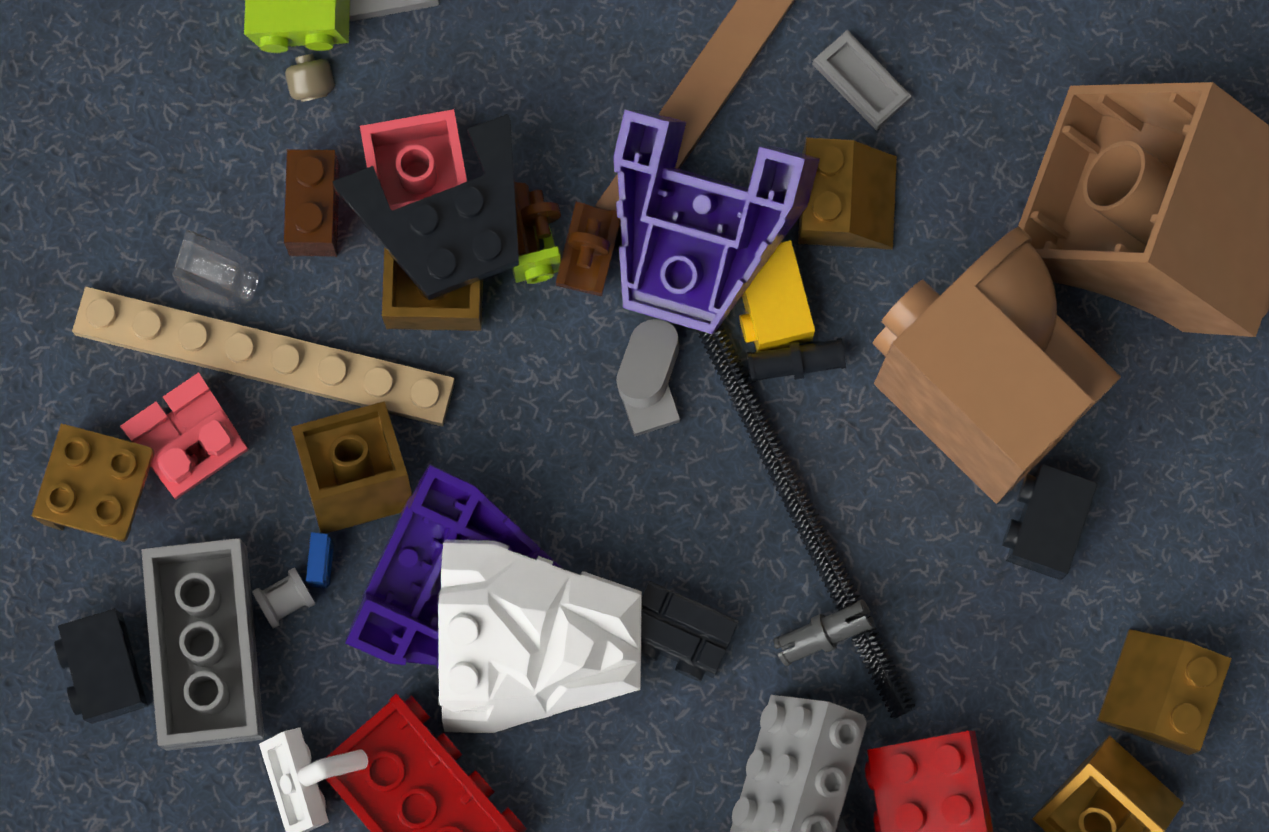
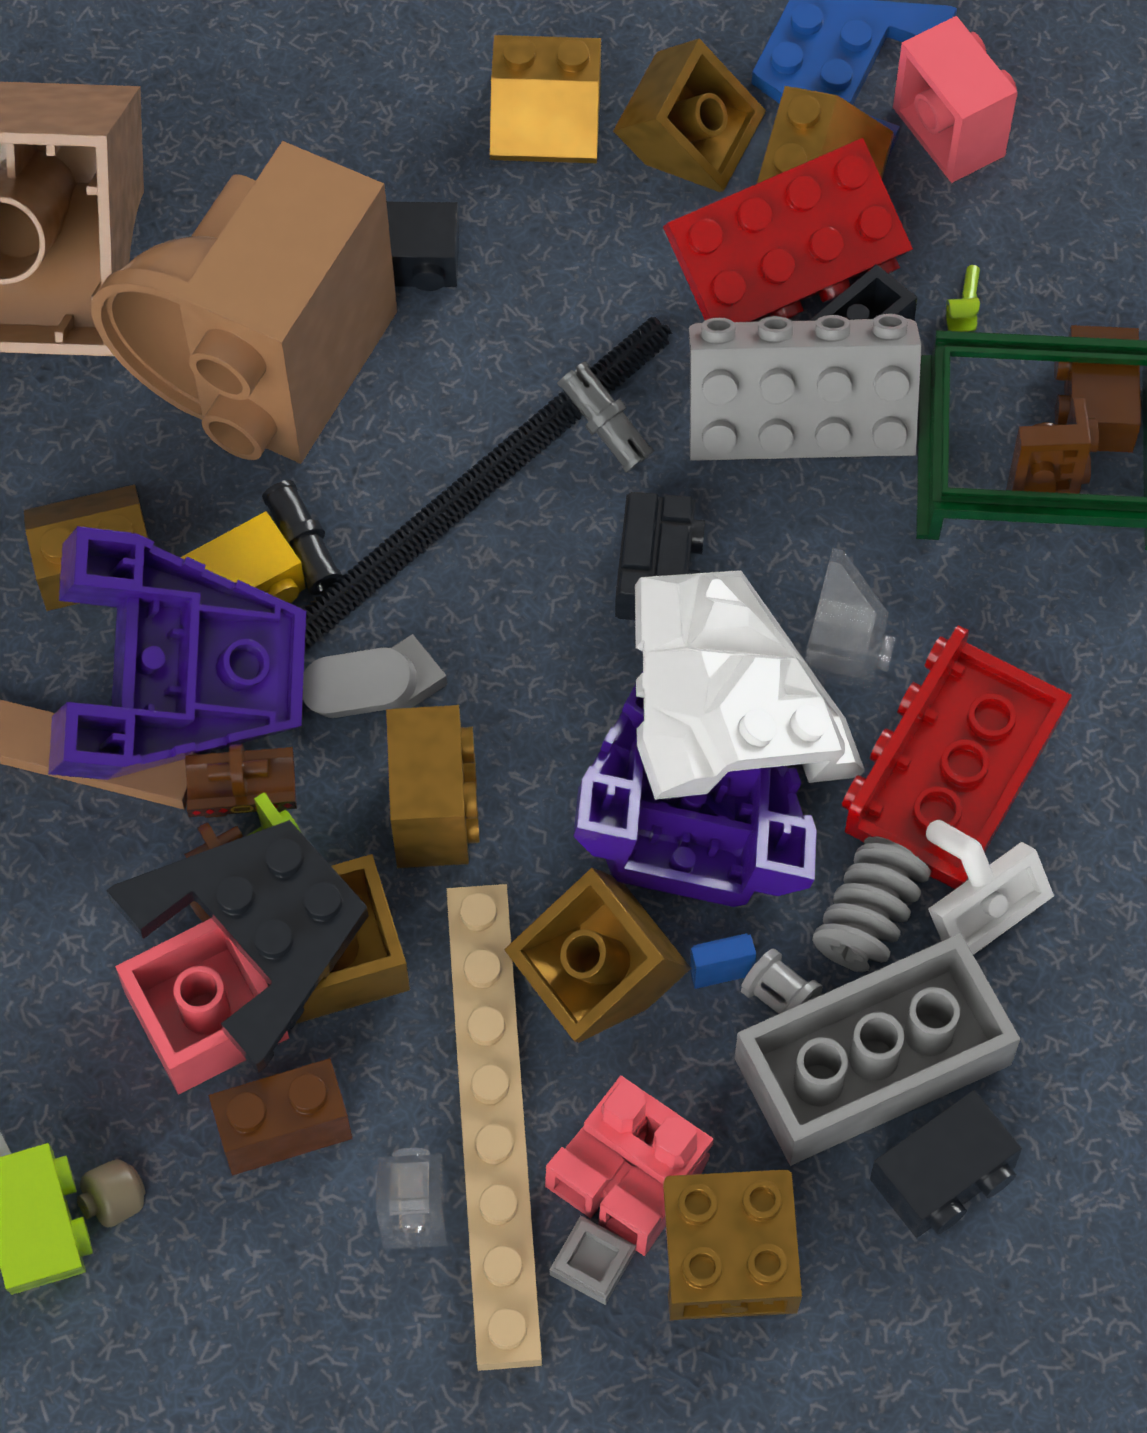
camera: 105 degrees left, 15 degrees down
(132, 390) = (592, 1260): none -> light grey tile
(322, 690) = (868, 902): none -> light grey piece
(527, 382) = (431, 786): none -> pearl gold brick
(566, 761) = (848, 628): none -> clear slope

